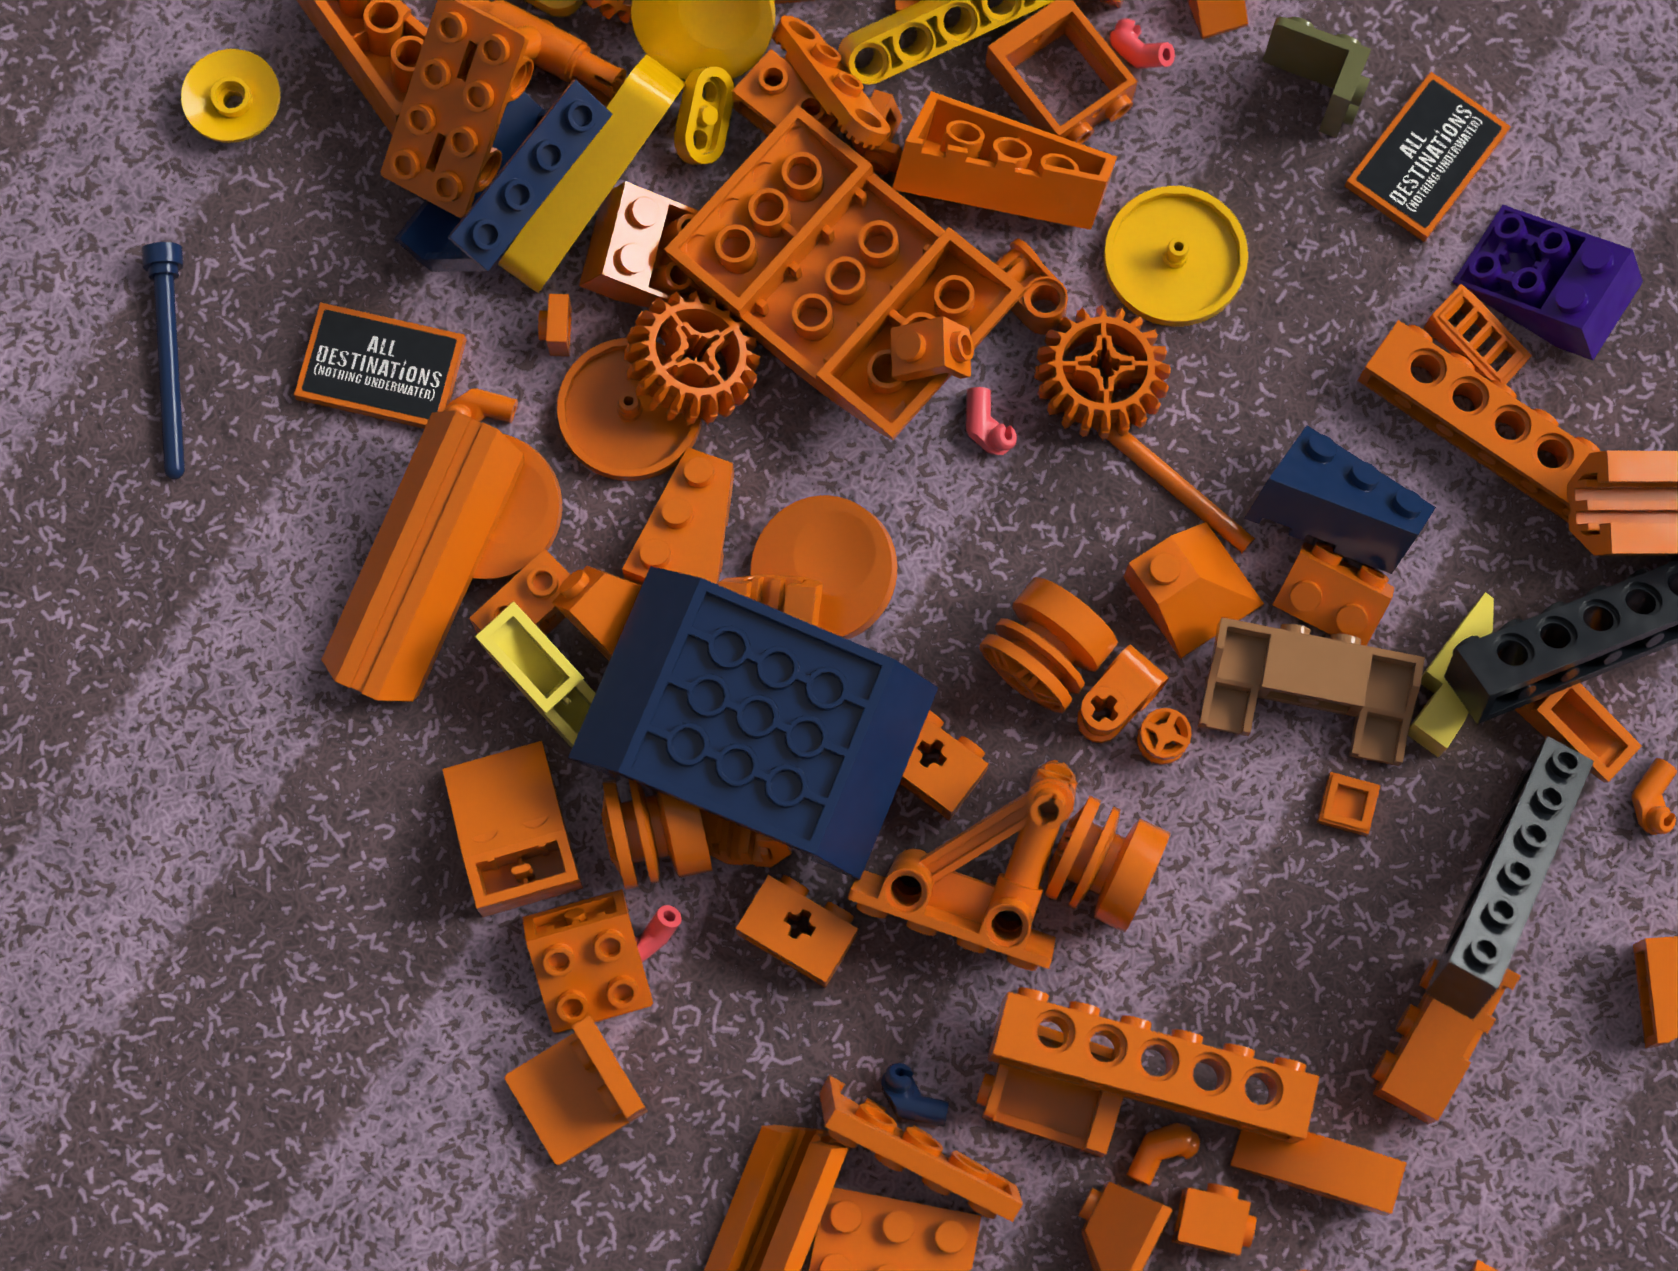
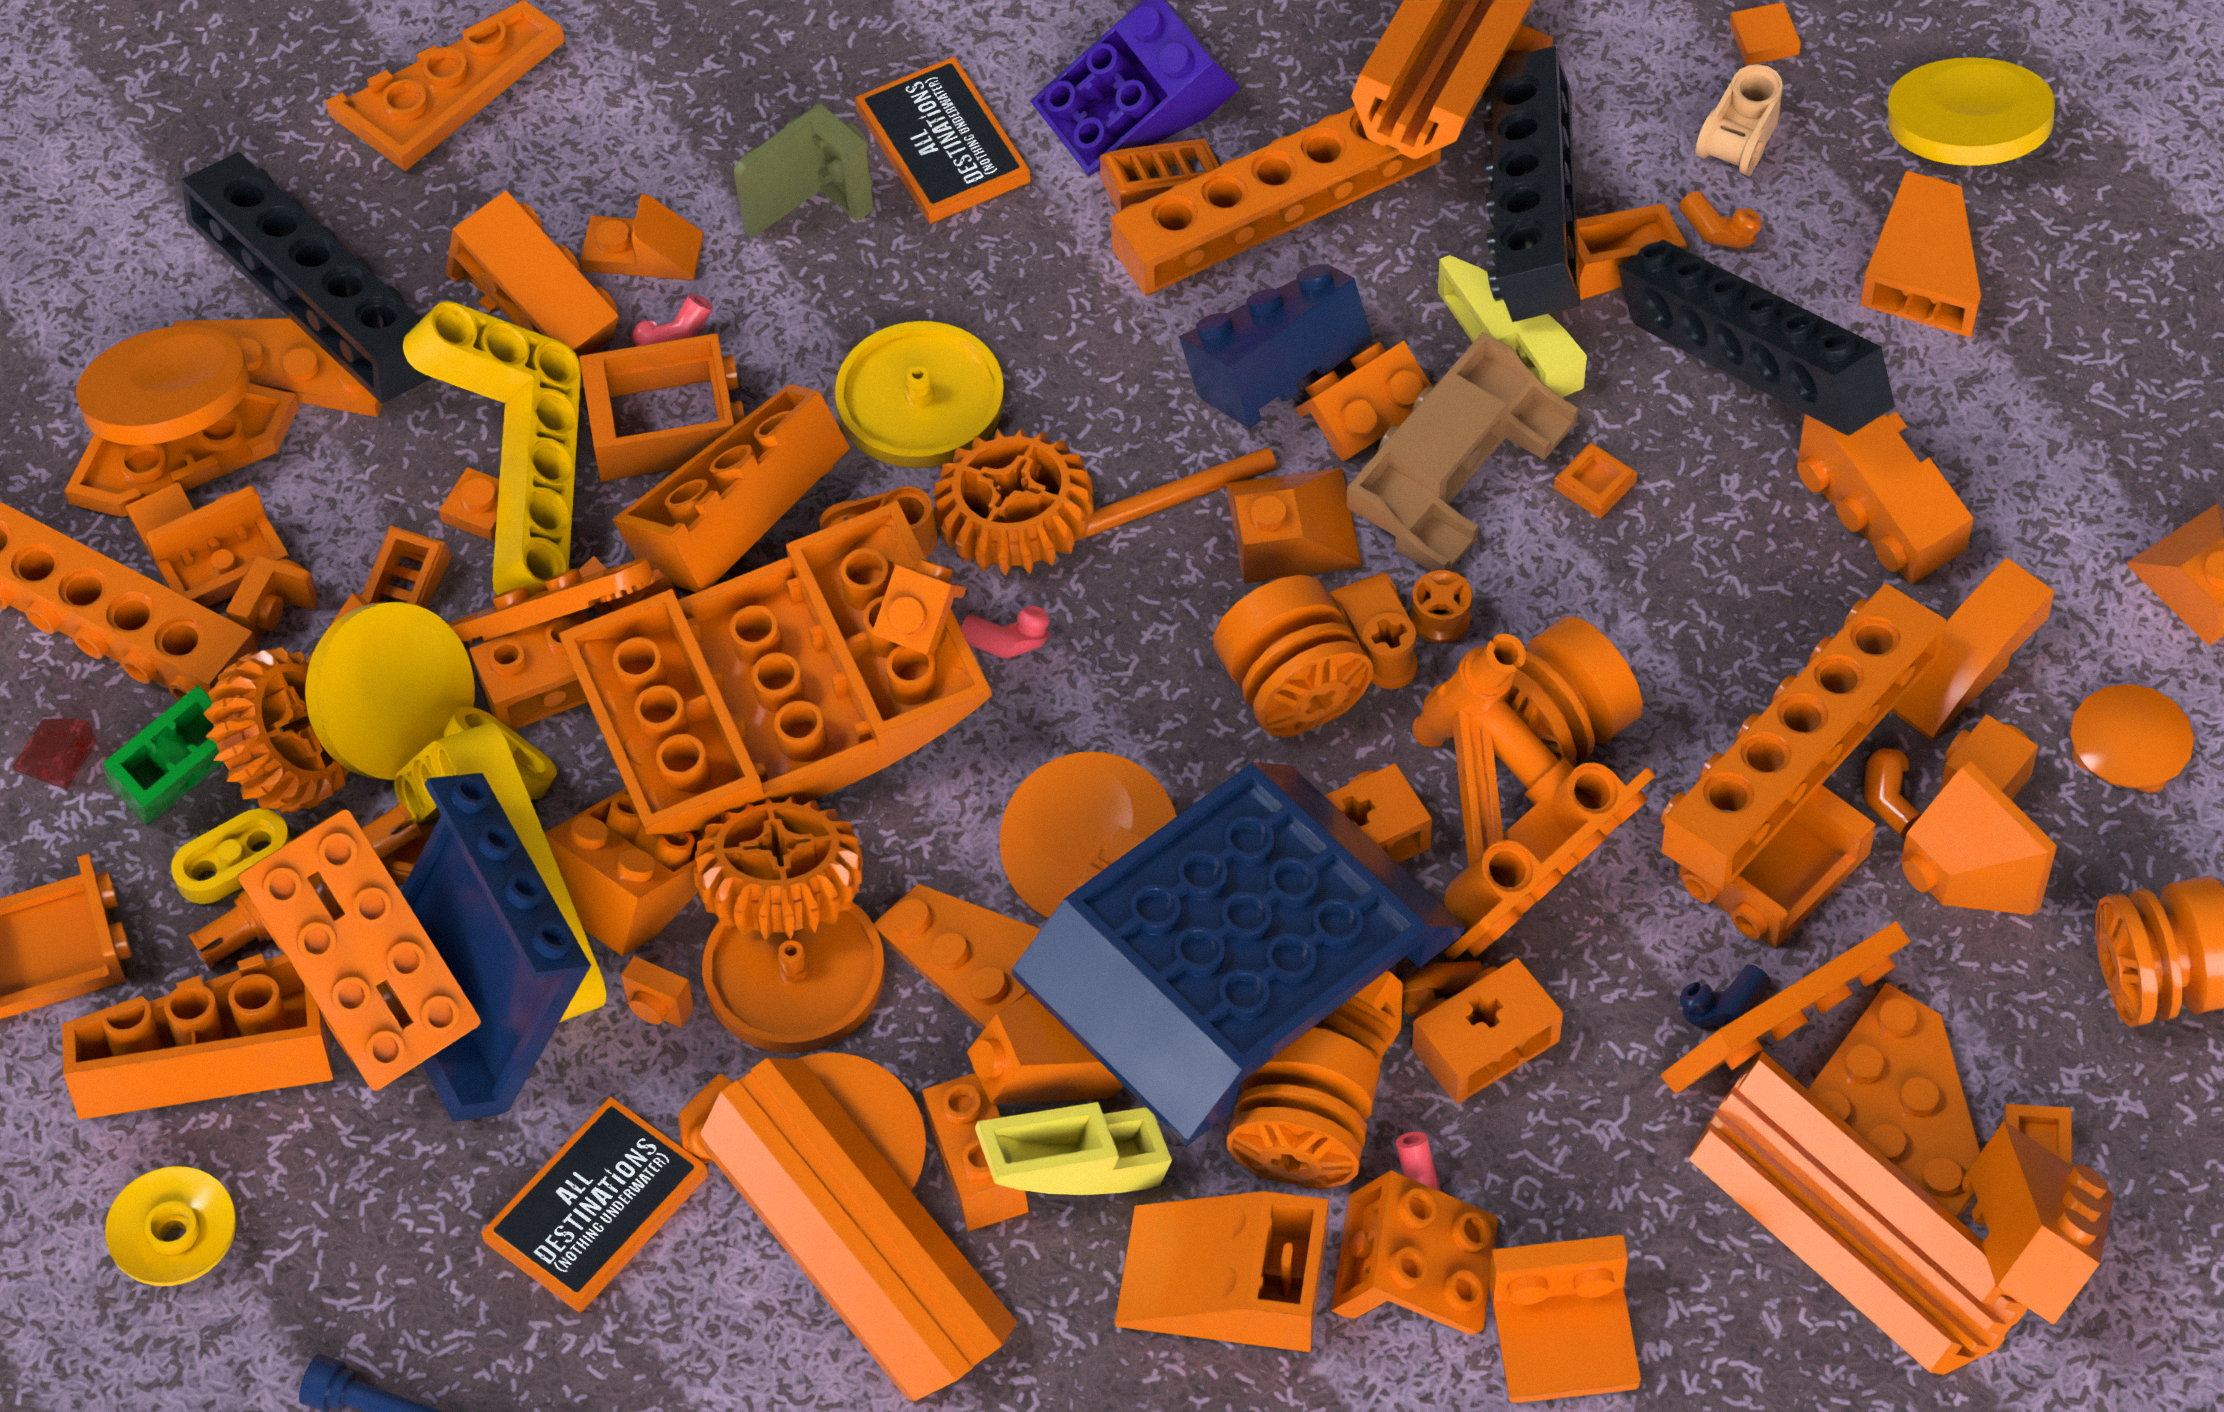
camera: 60 degrees left, 20 degrees down
(836, 883) = (1436, 979): none -> orange arm

